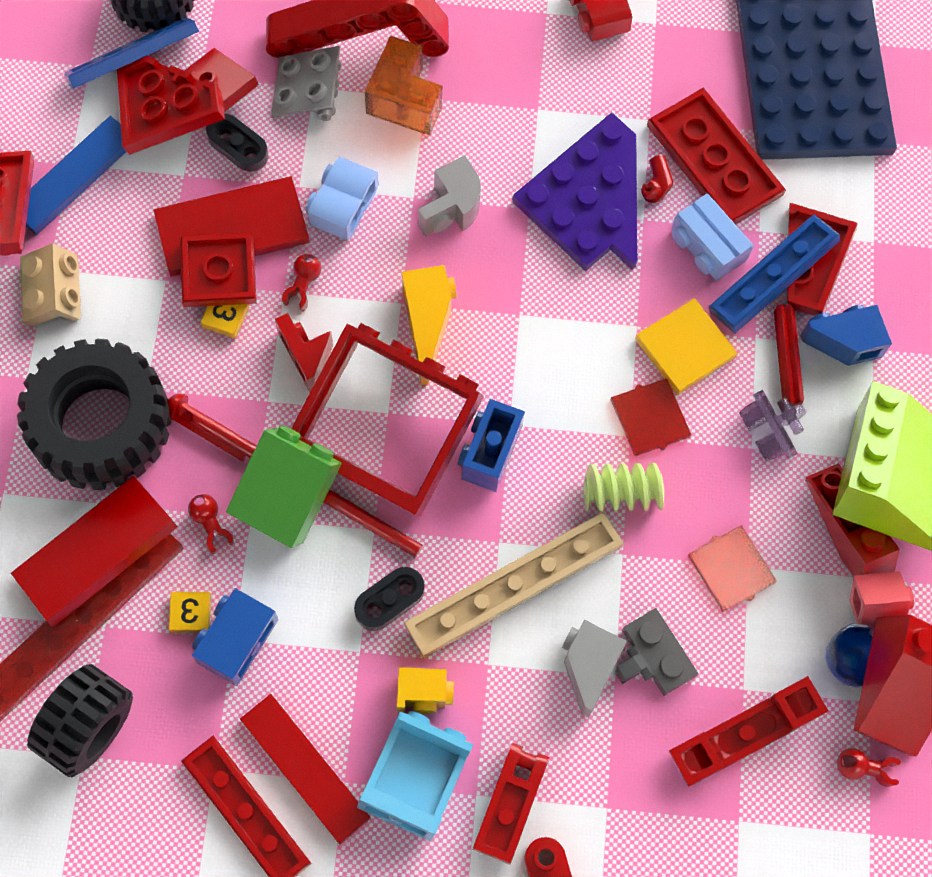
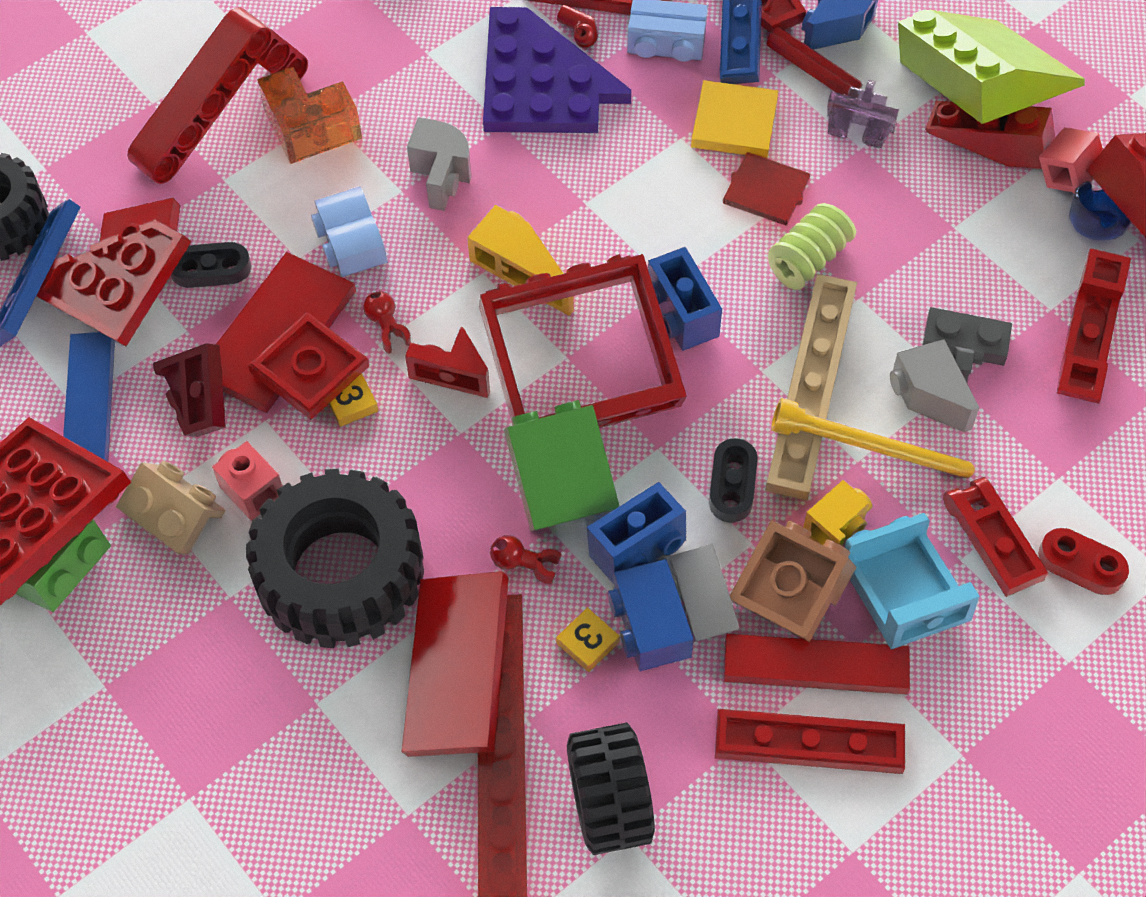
camera: 40 degrees left, 10 degrees down
(106, 312) = (247, 479): none -> coral brick
(137, 224) = (195, 388): none -> dark red wing
(241, 447) = (482, 481): red bar -> none
(283, 576) = (637, 531): none -> blue brick
(285, 653) = (704, 592): none -> light grey slope
(307, 83) = (218, 175): light grey hinge -> none
(346, 701) = (793, 578): none -> nougat plate
(464, 597) = (791, 418): none -> yellow piece
(732, 568) = (946, 237): clear red piece -> none

